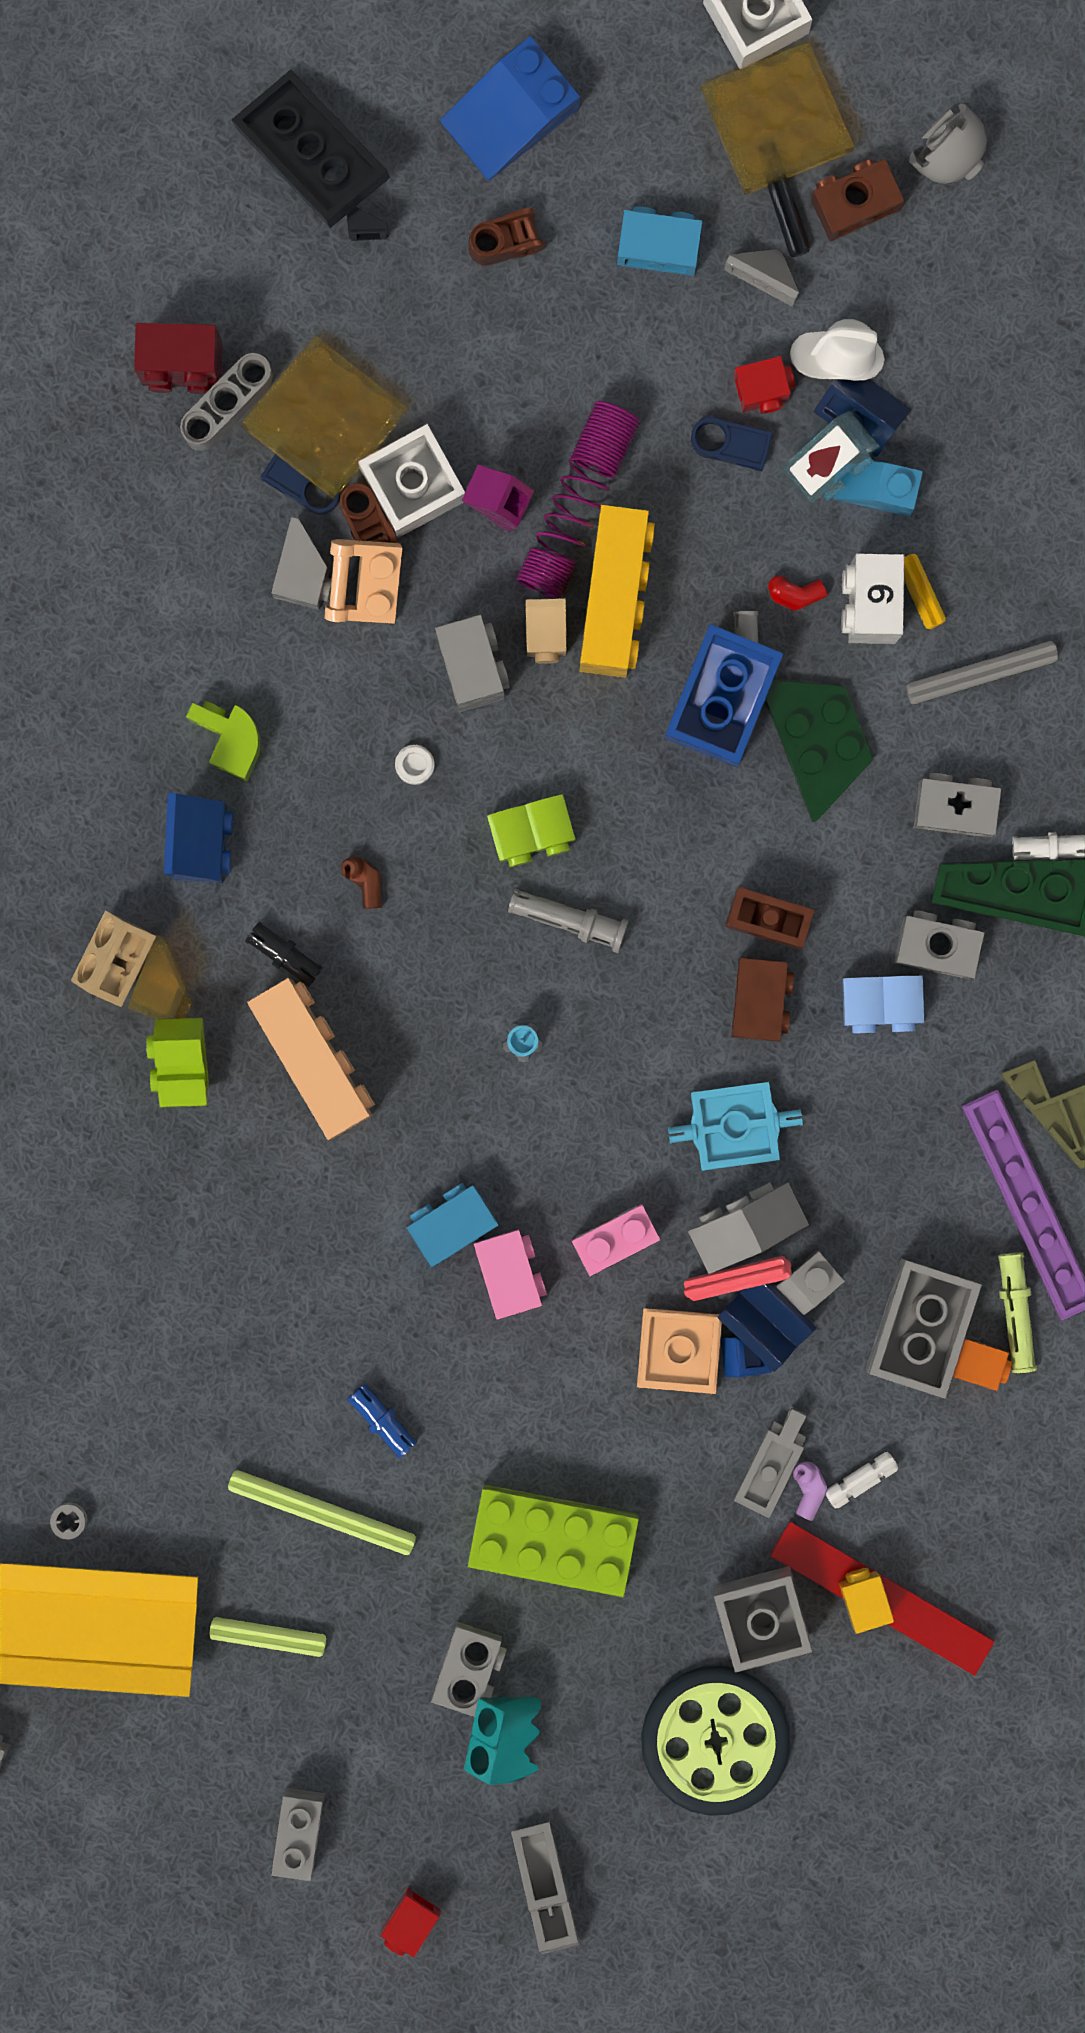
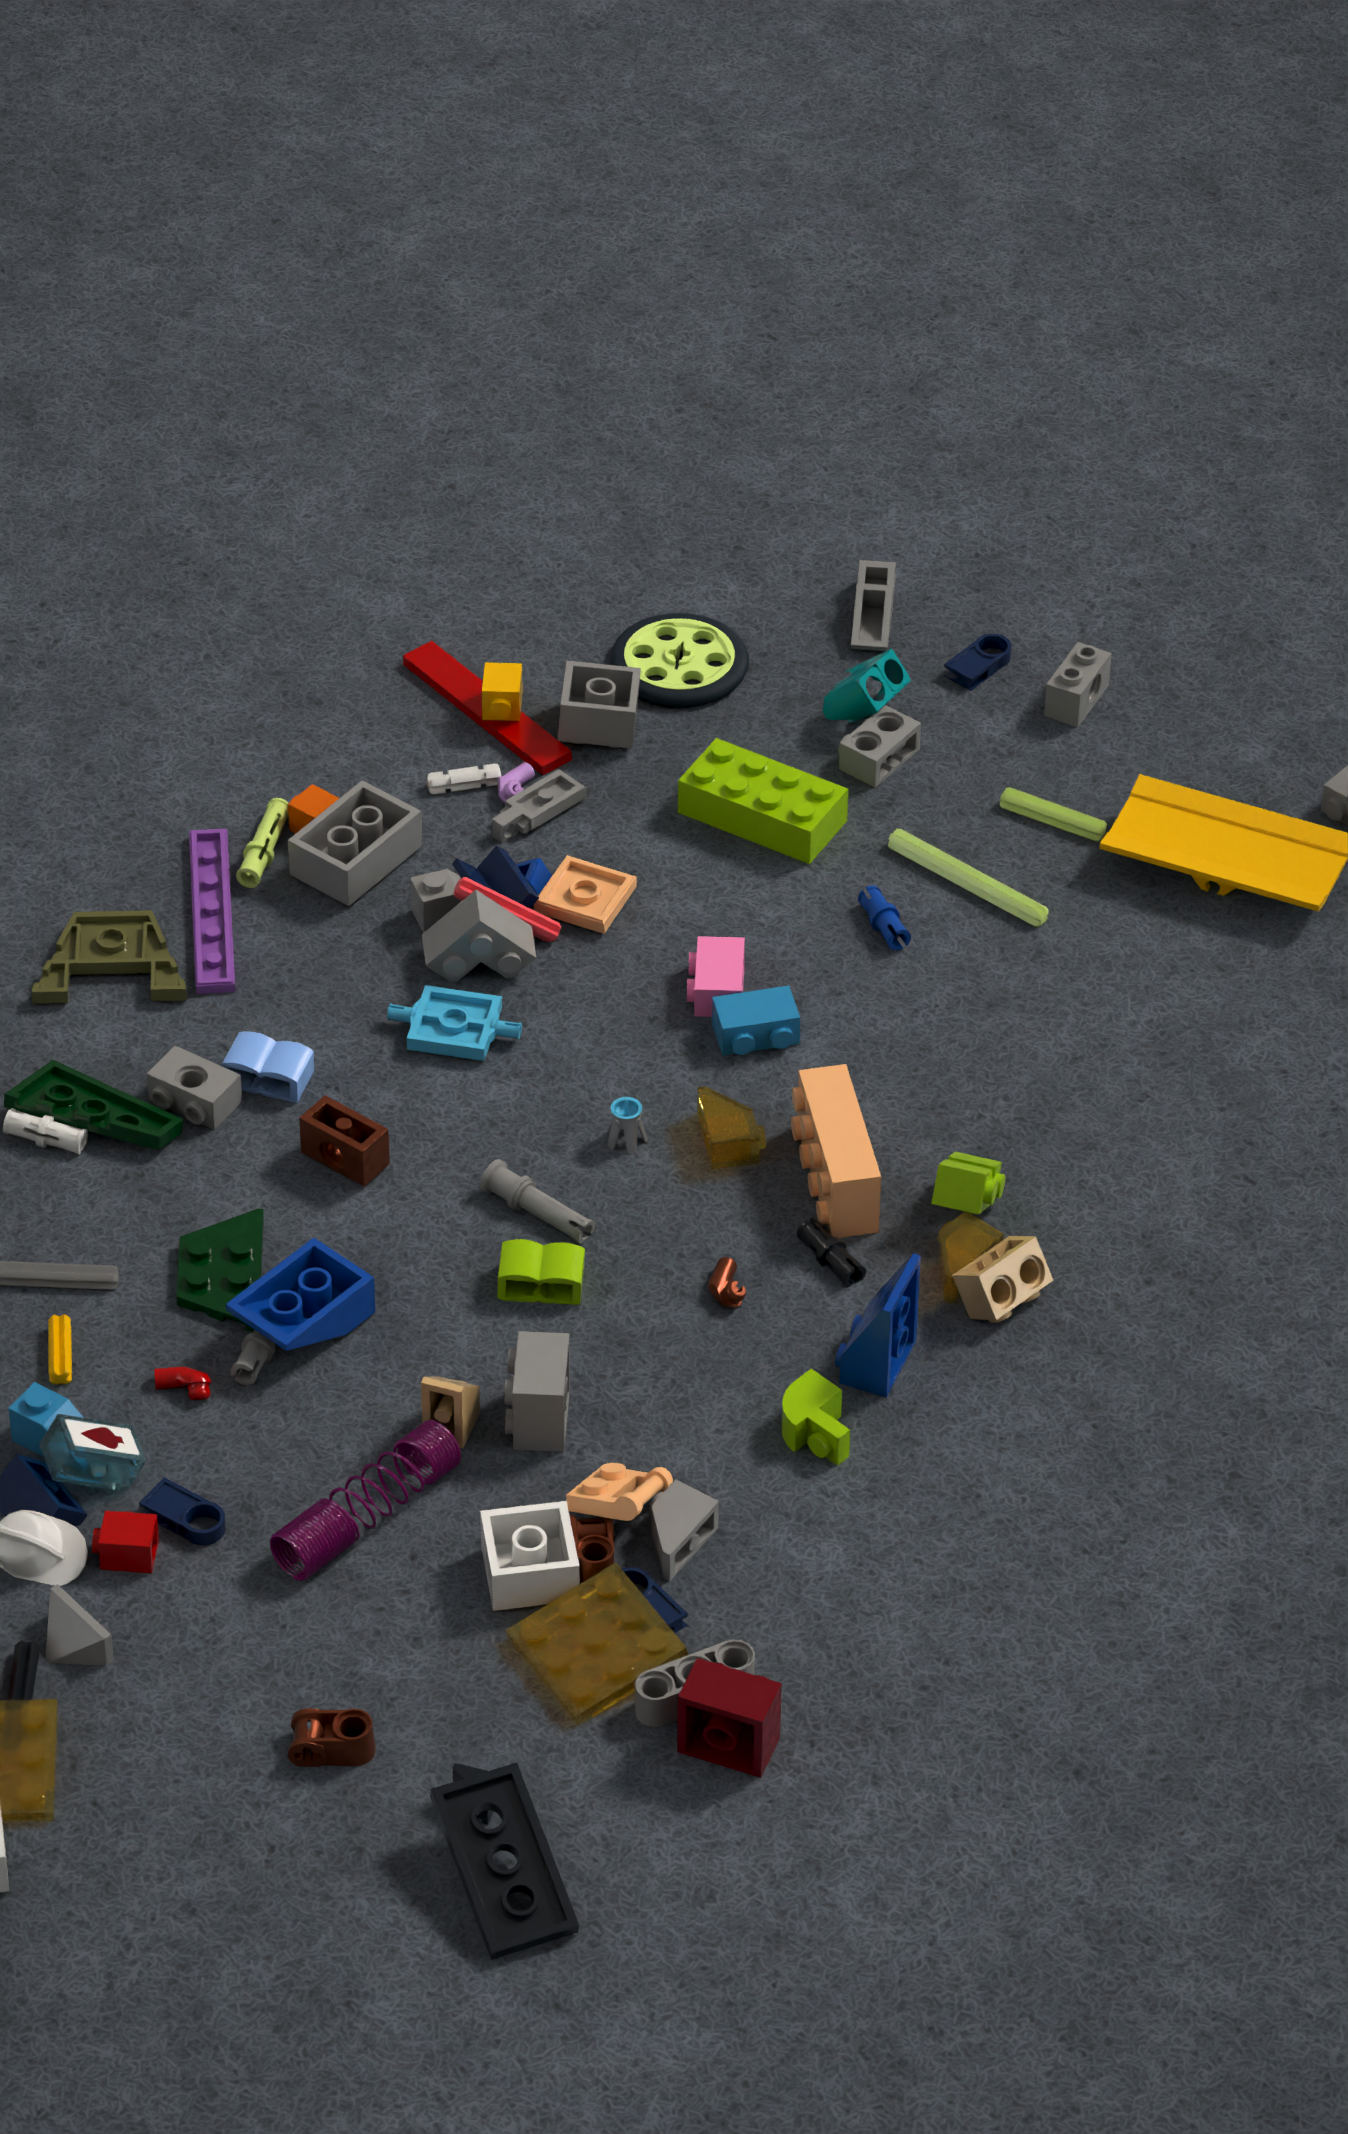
camera: 160 degrees left, 45 degrees down
(69, 1533) = (1203, 928): light grey bush -> none
(409, 1924) = (1002, 613): red brick -> none
(414, 764) = (634, 1358): white tile -> none
(415, 1840) = (975, 666): none -> dark blue piece
(426, 1068) = (728, 1130): none -> clear yellow slope
(498, 497) = (445, 1500): magenta slope -> none
(511, 109) = (264, 1848): blue slope -> none
(614, 590) = (366, 1405): yellow brick -> none
(615, 1239) = (606, 971): bright pink brick -> none
(659, 241) = (170, 1686): dark azure brick -> none
(760, 1000) = (387, 1090): copper brick -> none
(875, 598) = (111, 1331): white brick -> none
(975, 820) = (119, 1177): light grey brick -> none

